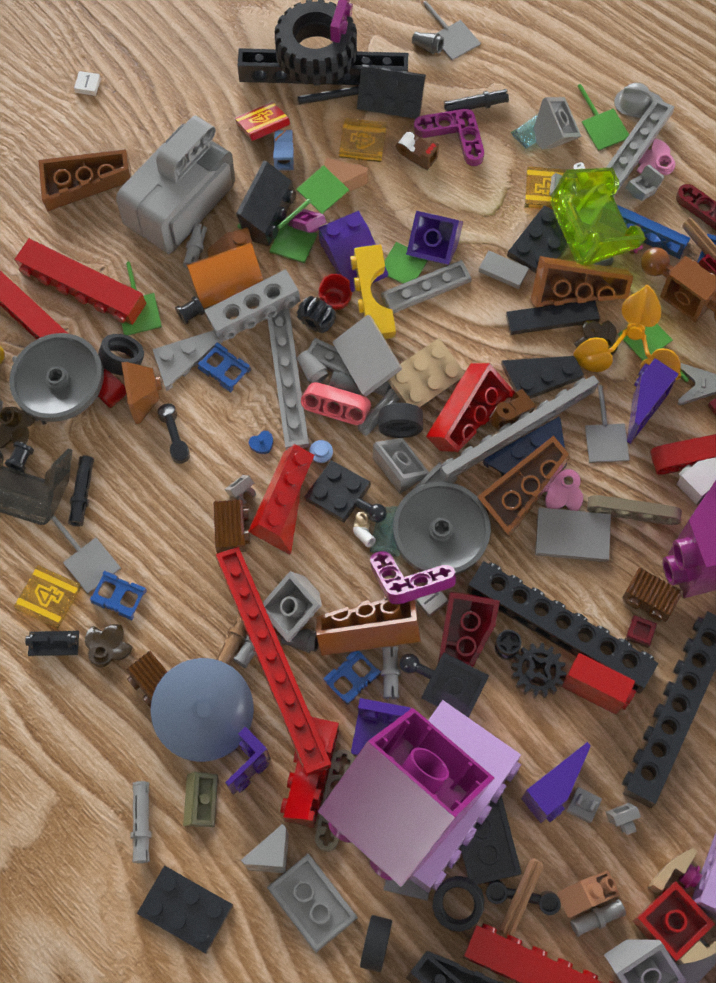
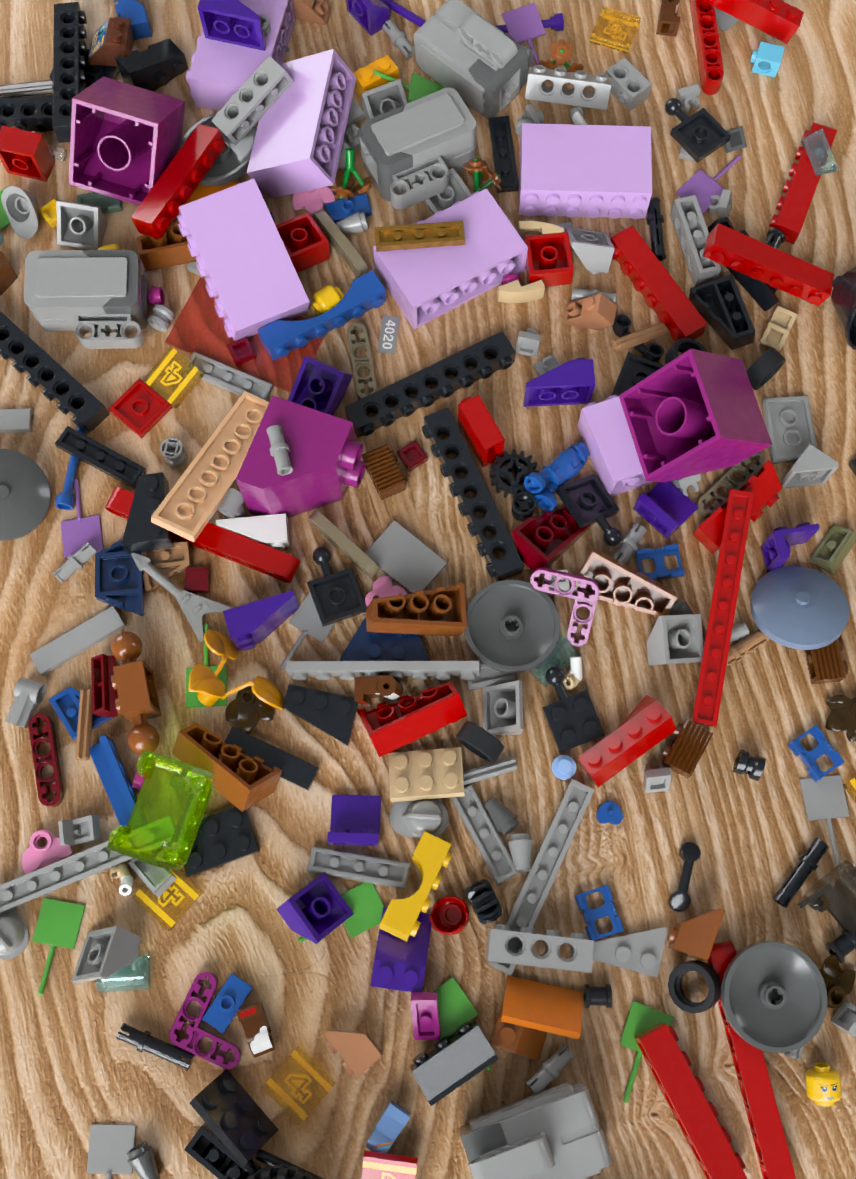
camera: 145 degrees left, 5 degrees up
(169, 546) = (748, 765): none -> black wheel
(320, 190) = (388, 1039): bright green piece -> none
(325, 404) = (523, 800): coral beam -> none
(367, 355) = (468, 822): light grey tile -> none
(408, 343) = (417, 816): none -> light grey piece
(449, 154) = (227, 1003): none -> blue plate
(452, 310) = (355, 820): none -> dark purple bracket
(499, 696) = (557, 474): none -> blue piece
(503, 269) = (275, 836): light grey tile -> none
(605, 464) = (335, 594): none -> black plate

